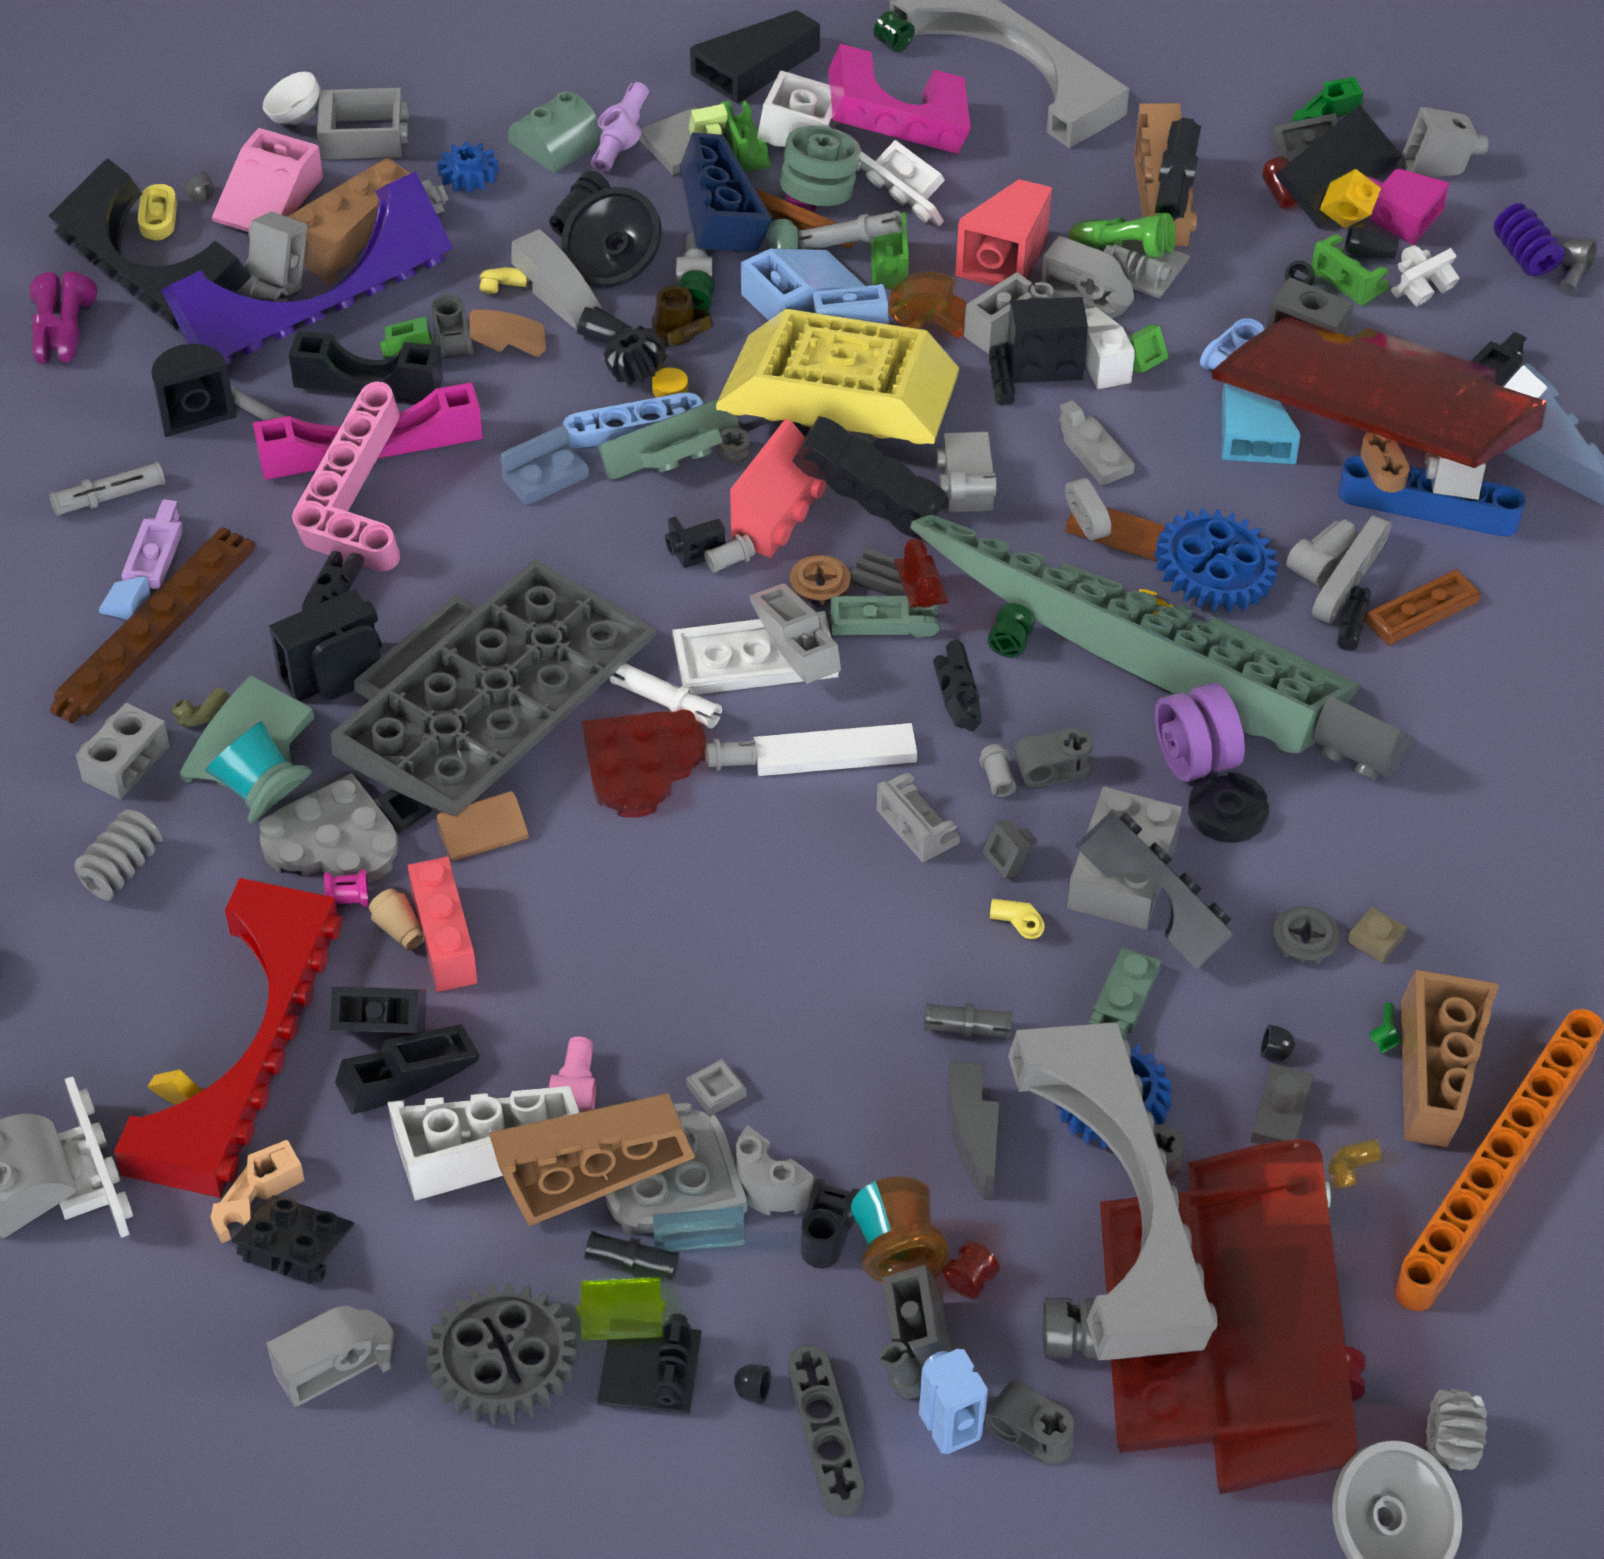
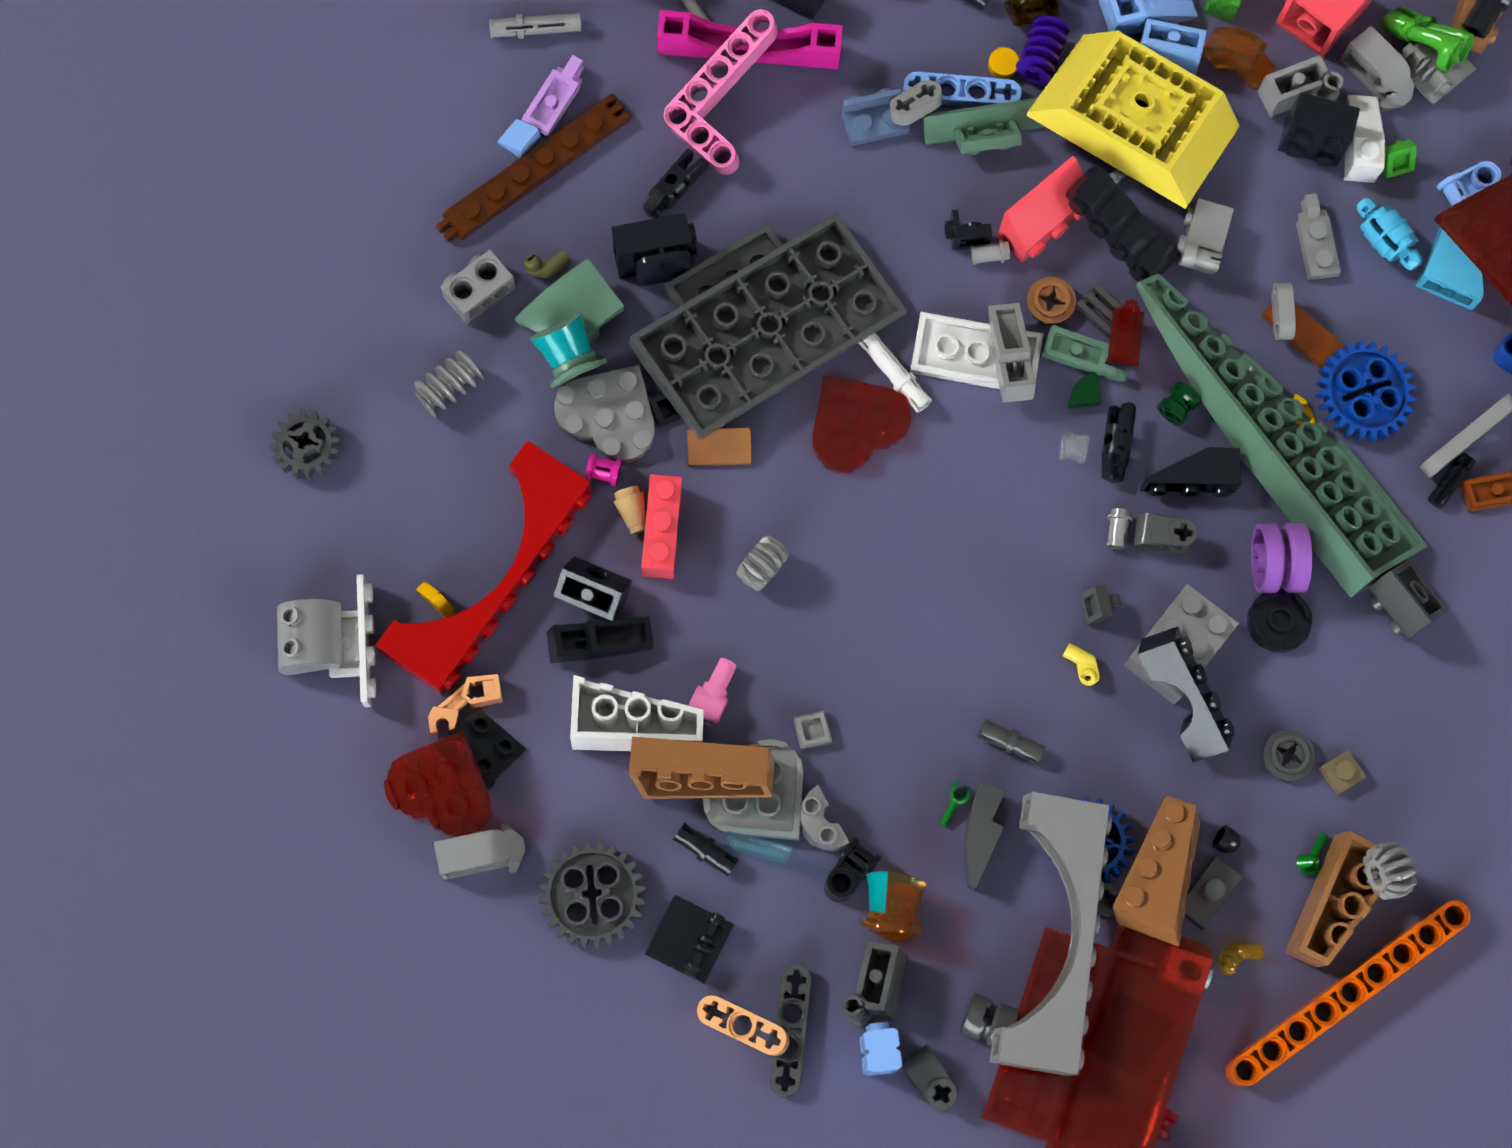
camera: 15 degrees right, 25 degrees up
(252, 1280) = (441, 785): none -> clear red plate
(583, 920) = (762, 563): none -> light grey gear
(585, 434) = (915, 102): none -> light grey beam
(621, 1309) = (684, 888): clear neon green piece -> none
(635, 355) = (984, 29): black gear -> none
(708, 355) = (1042, 50): none -> dark purple piece
(730, 753) = (924, 444): light grey pin -> none
(734, 445) = (1027, 150): dark grey bush -> none
(753, 1382) = (753, 978): black hinge -> none
(774, 1453) = (717, 1023): none -> light nougat beam
(835, 749) = (1004, 465): white tile -> none
(899, 654) = (1085, 393): none -> dark green tile
(909, 704) = (1073, 446): none -> clear wheel
(914, 819) = (1040, 550): light grey hinge -> none
(926, 1110) = (956, 800): none -> green hand
(971, 1269) = (934, 947): clear red wheel -> none
(1001, 375) = (1271, 143): black axle -> none
(1069, 686) = (1207, 471): none -> black slope
(1126, 990) = (1133, 759): sand green hinge -> none
(1173, 404) = (1389, 233): none -> medium azure piece
(1213, 1095) = (1161, 874): none -> medium nougat wedge
(1319, 557) = (1448, 415): light grey piece -> none
(1482, 983) = (1389, 870): none -> light grey gear

